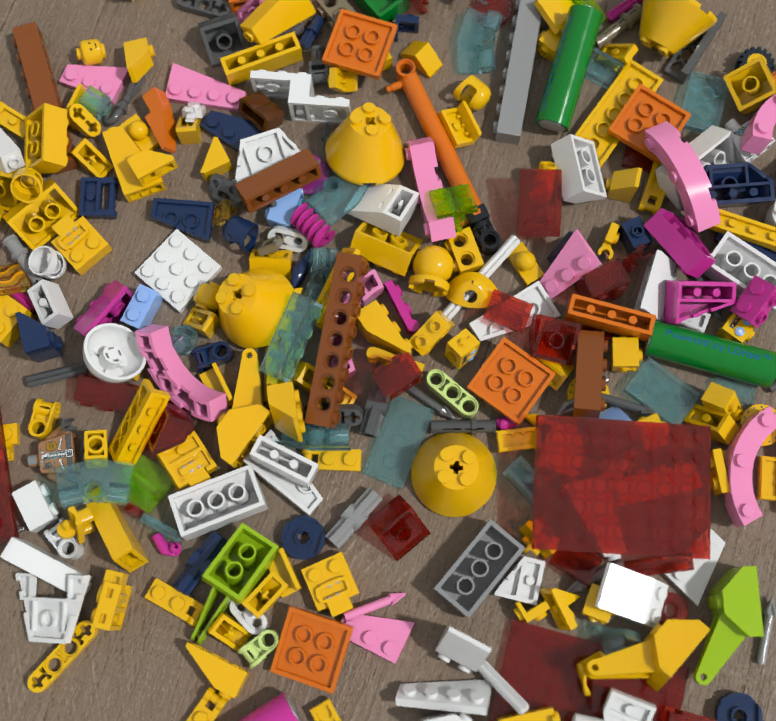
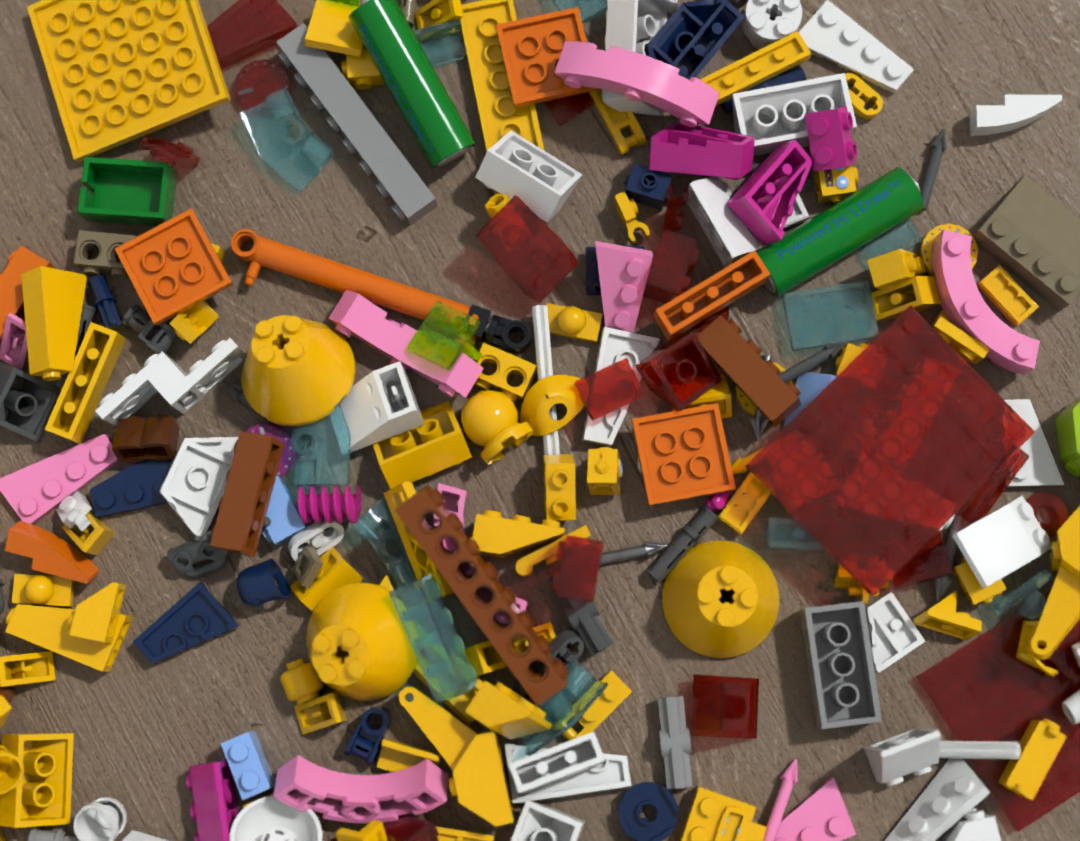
camera: 45 degrees left, 5 degrees up
(79, 243) = (108, 766): yellow piece -> none
(91, 197) = (67, 707): dark blue plate -> none
(178, 270) = (239, 687): white plate -> none
(184, 339) = (325, 749): clear light blue head -> none
(215, 161) = (155, 536): yellow slope -> none
(222, 212) = (220, 582): clear yellow tile -> none
(301, 270) = (363, 557): dark blue hand -> none
(398, 442) = (638, 624): clear light blue tile -> none
(401, 308) = (504, 491): dark pink plate -> none
(406, 23) = (192, 193): dark blue bracket -> none
(424, 57) = (246, 212): yellow slope -> none
(449, 384) = (653, 520): yellowish green beam -> none
(460, 125) = (362, 246): yellow bracket -> none
(477, 90) = (339, 192): yellow helmet -> none
(537, 612) = (929, 651): yellow bracket -> none
(623, 184) = (585, 145): yellow slope -> none
(625, 354) = (760, 314): yellow head -> none

